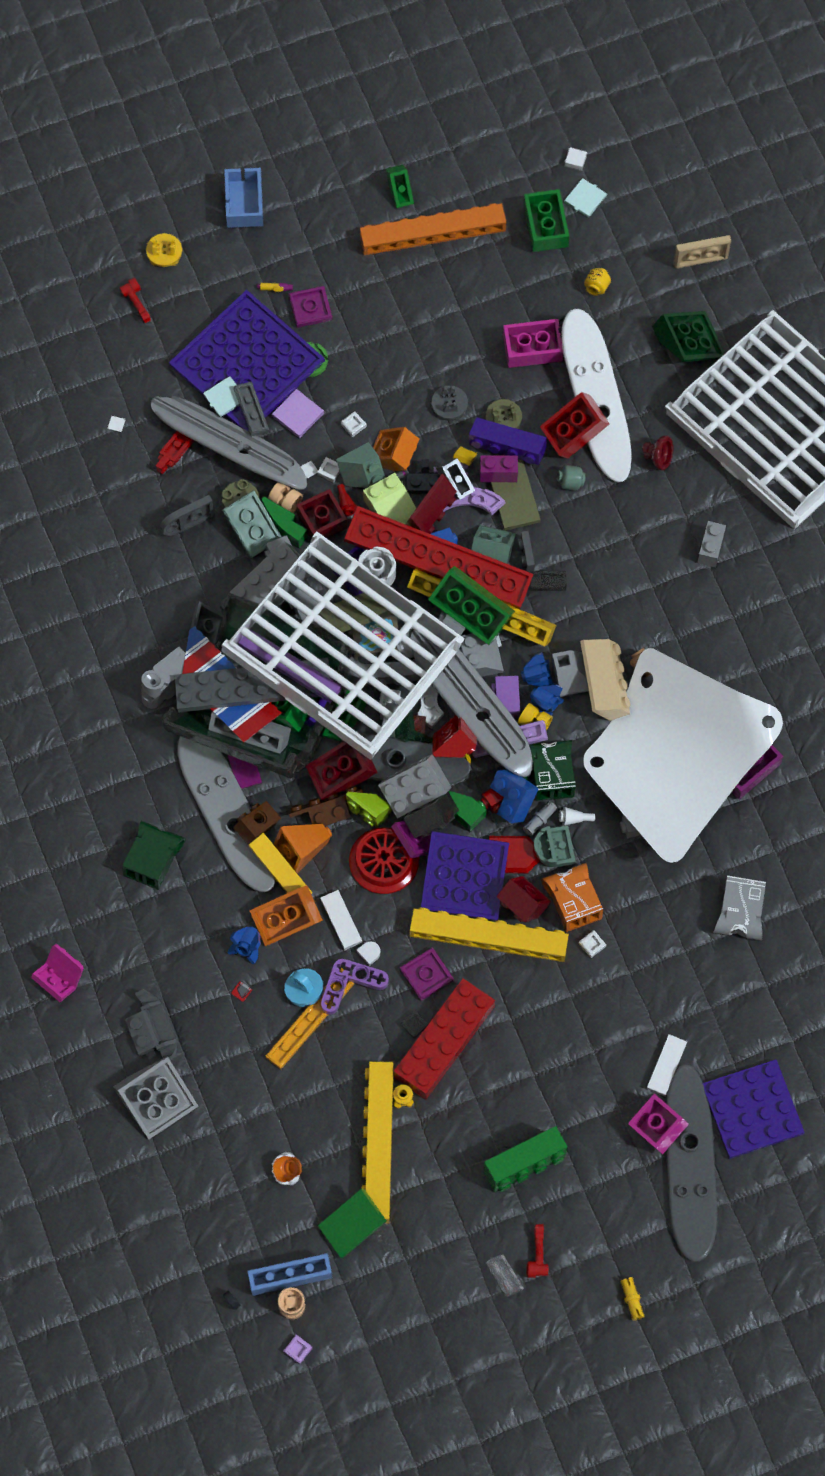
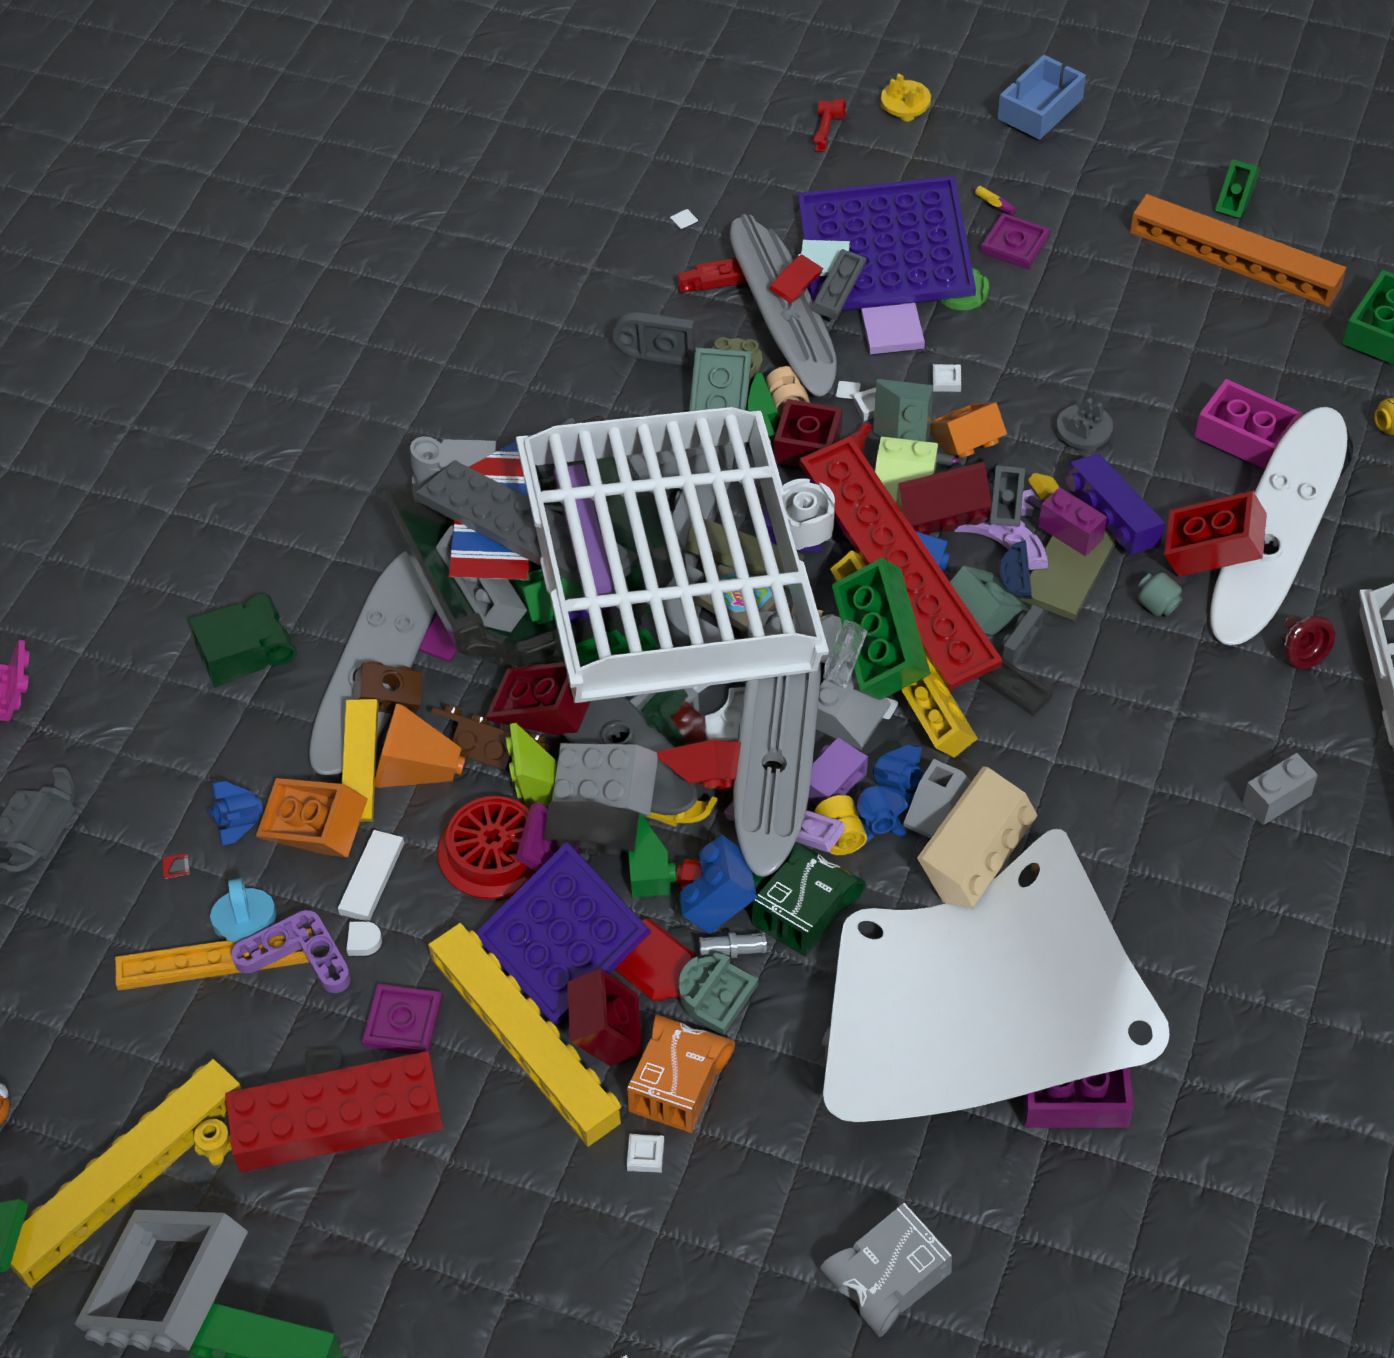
camera: 45 degrees right, 15 degrees down
(228, 423) = (795, 278): none -> red slope
(471, 640) = (845, 653): none -> clear plate
(485, 1153) = (220, 1244): none -> light grey window
(494, 518) = (1015, 571): none -> dark blue tile
(511, 411) = (1148, 476): olive plate -> none
(570, 816) = (774, 973): white cone -> none

